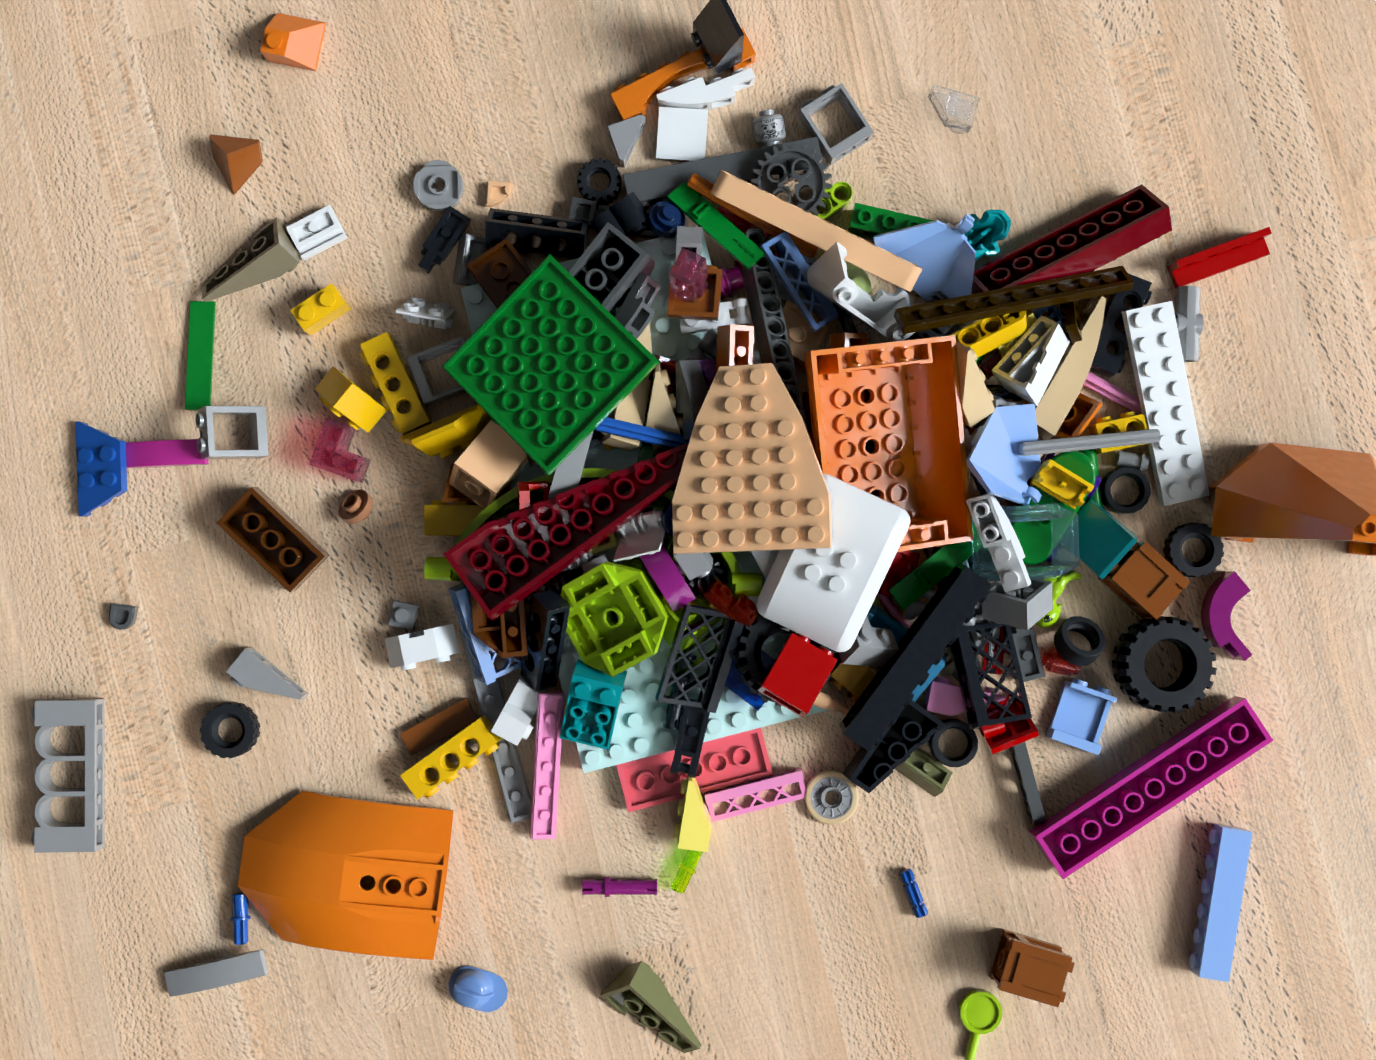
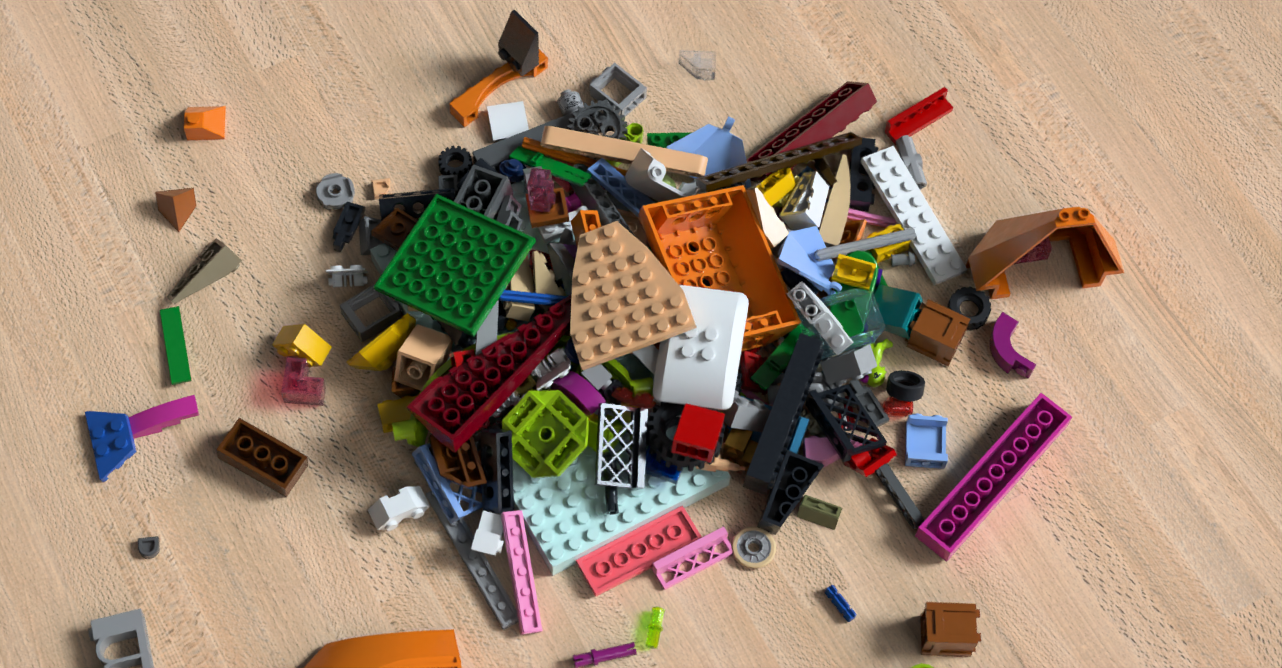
camera: 15 degrees left, 25 degrees down
(211, 736) = (255, 626): black tyre -> none
(257, 432) = (232, 383): light grey window -> none
(258, 673) = (273, 562): light grey slope -> none
(316, 232) = (249, 241): white plate -> none
(321, 309) = (264, 290): yellow brick -> none
(355, 507) = (322, 421): nougat plate -> none
(373, 352) = (319, 306): yellow brick -> none
(403, 615) = (377, 491): light grey plate -> none
(418, 777) = (458, 558): yellow brick -> none
(439, 726) = (426, 569): dark orange tile -> none
(592, 706) = (547, 509): teal slope -> none
(625, 136) = (466, 130): light grey slope -> none
(690, 740) = (630, 516): black plate -> none
(695, 822) = (651, 586): light yellow slope -> none
(697, 95) = (525, 91): white slope -> none
(971, 749) = (836, 469): black tyre -> none
(987, 231) = (747, 131): teal head -> none
(1142, 482) = (905, 267): black tyre -> none
(1195, 671) = (978, 365): black tyre -> none
(1220, 902) = (1079, 550): light blue brick -> none

